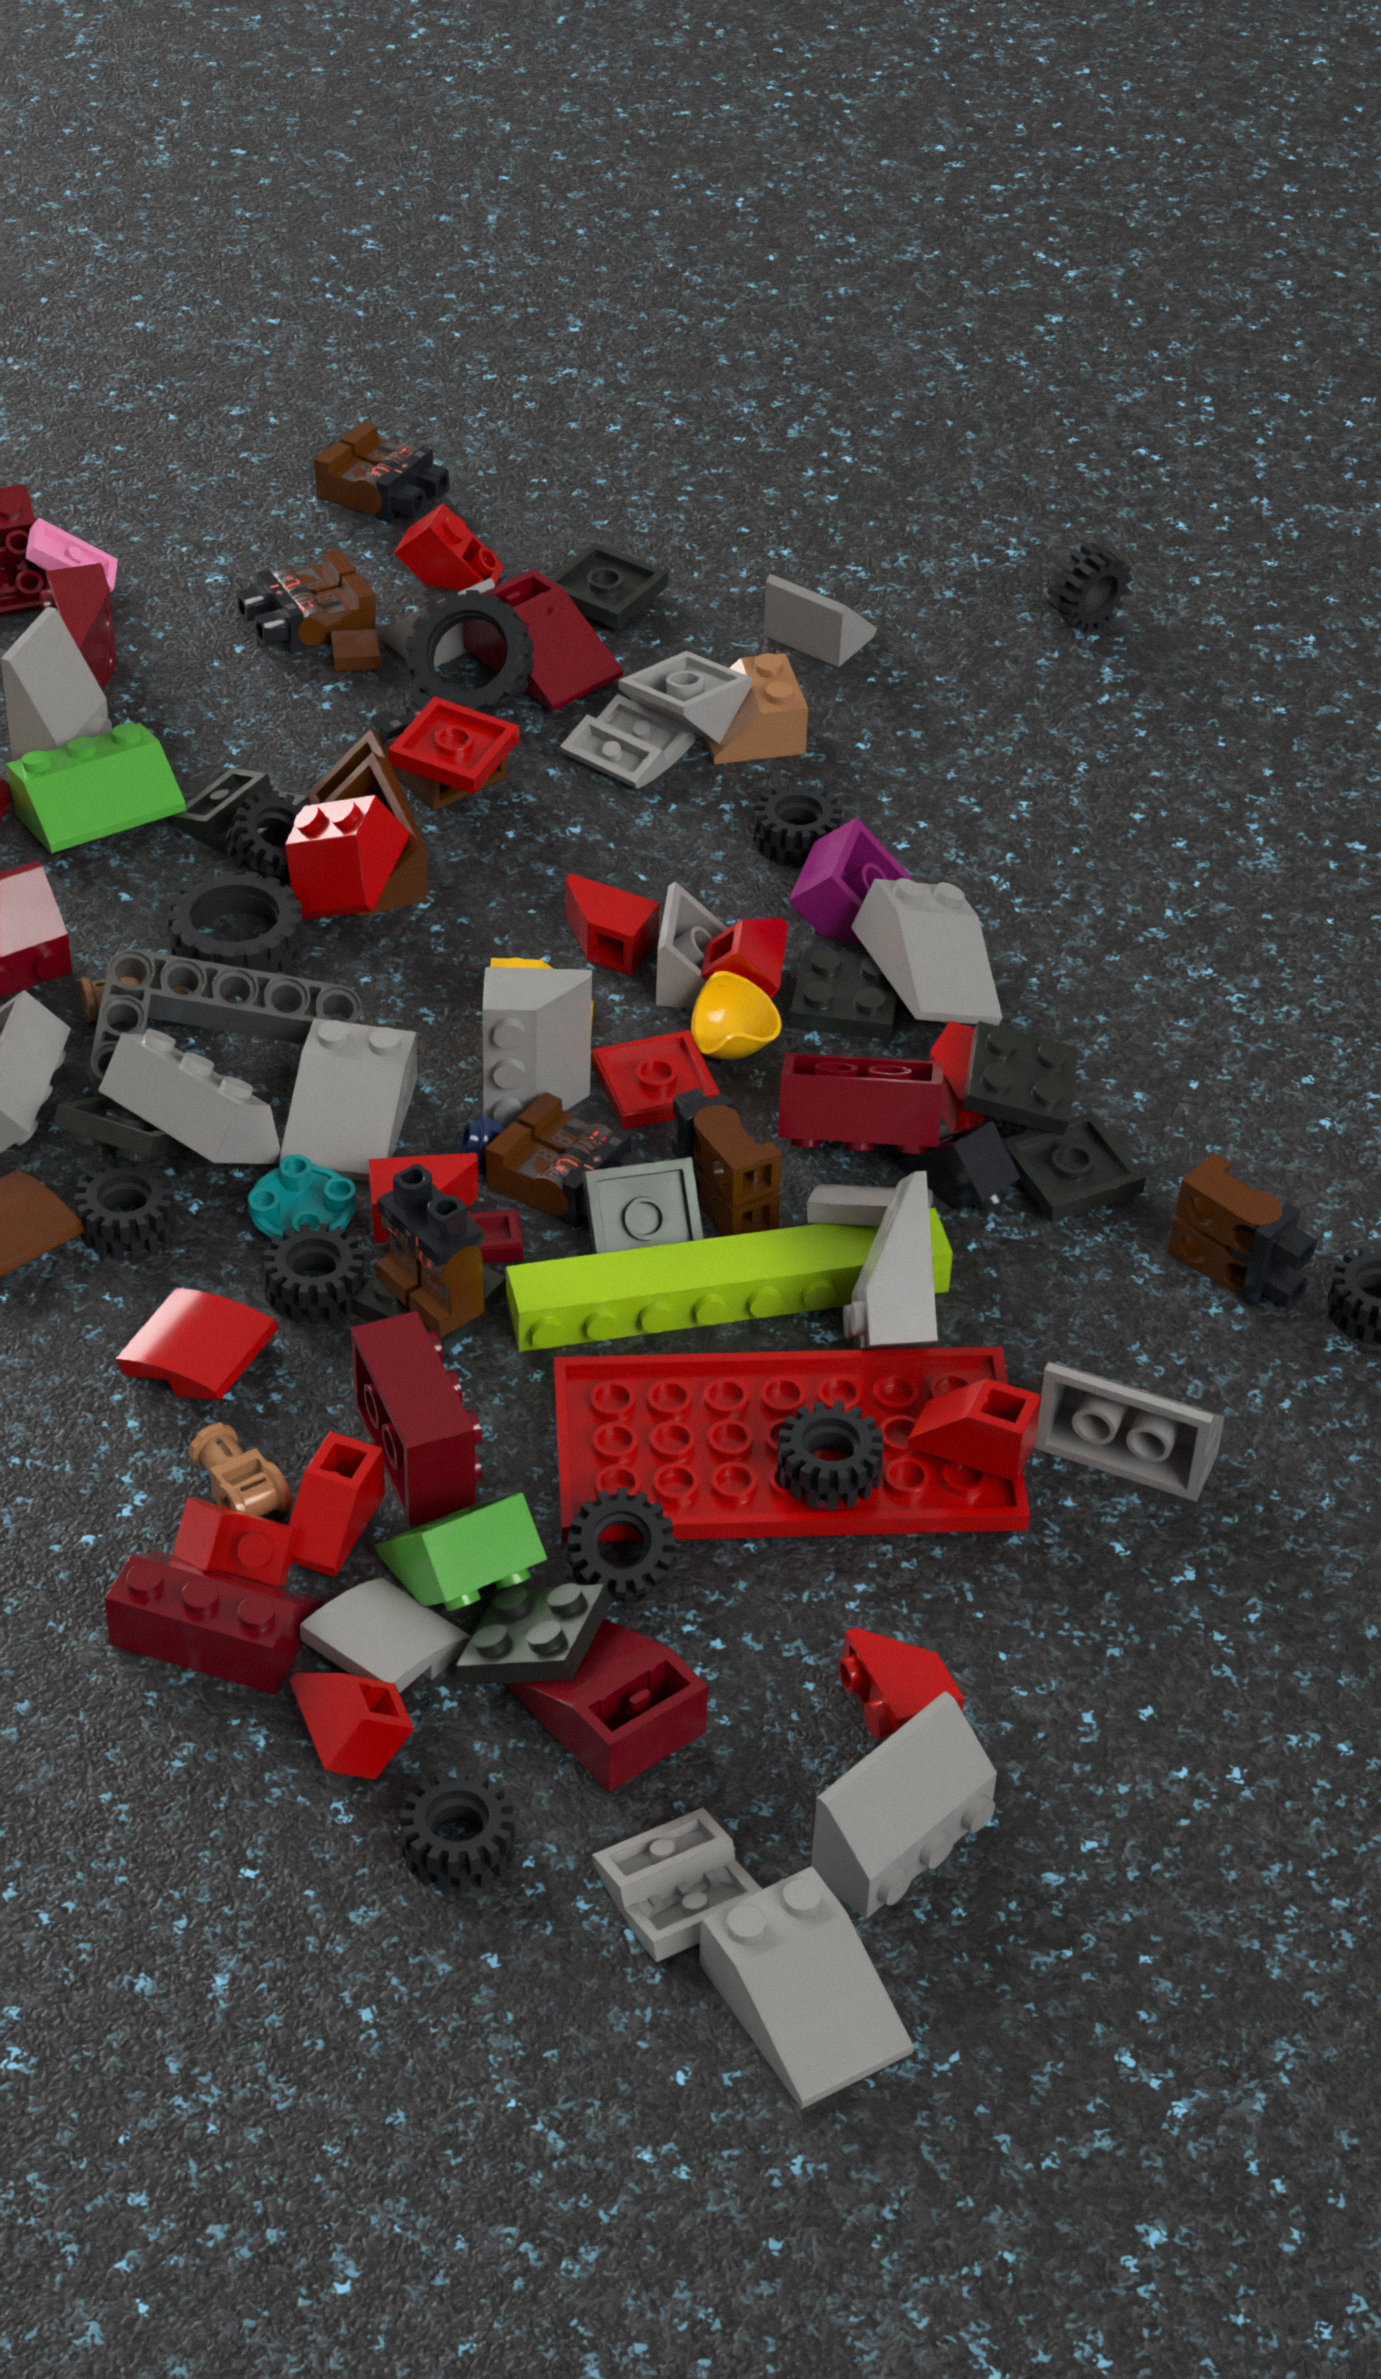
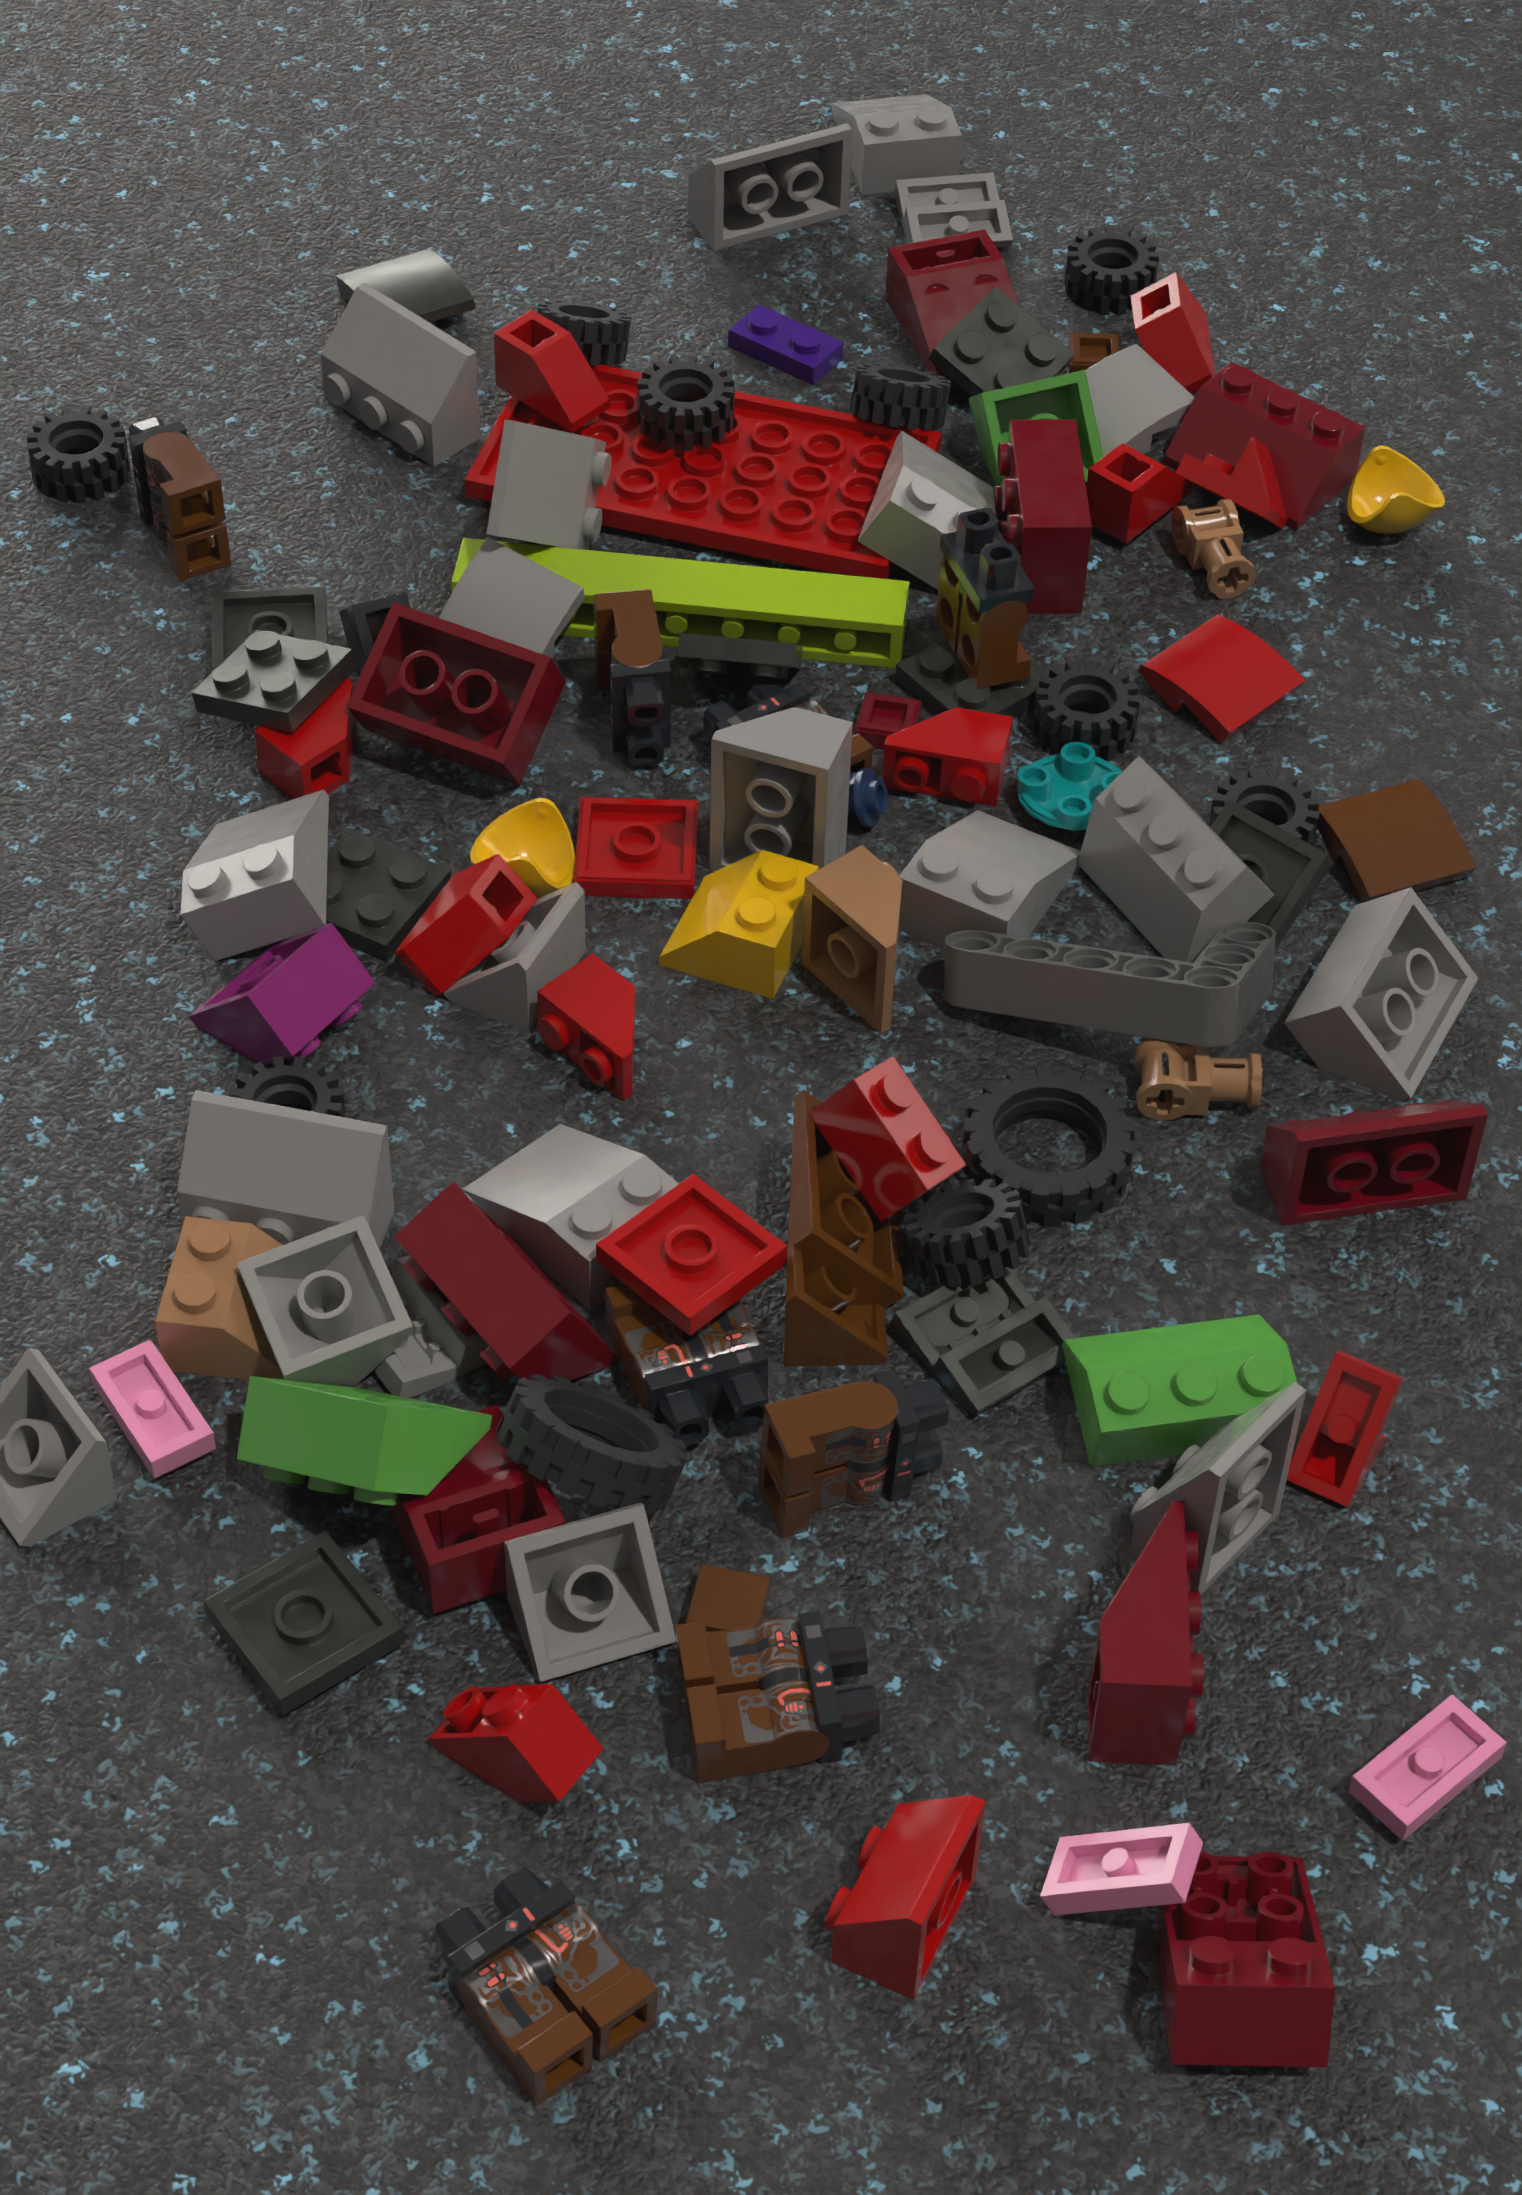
camera: 160 degrees left, 5 degrees up
(56, 1567) = (1391, 493): none -> yellow helmet
(191, 526) = (907, 1891): none -> red slope
(307, 696) = (848, 1446): none -> reddish brown hips
(434, 993) = (854, 932): none -> medium nougat slope
(440, 1716) = (1091, 349): none -> reddish brown tile
(531, 1407) = (918, 503): none -> light grey slope
(557, 813) = (566, 1198): none -> light grey slope
(576, 734) = (498, 1292): none -> dark red slope
(613, 623) = (354, 1438): none -> bright green slope
(739, 764) = (283, 1168): none -> light grey slope
(752, 642) = (152, 1408): none -> bright pink plate
(784, 1636) = (785, 344): none -> dark purple plate
(892, 1679) = (720, 268): red slope -> none
(998, 1504) = (597, 330): none -> black tyre
(1217, 1576) = (417, 282): none -> pearl dark grey slope

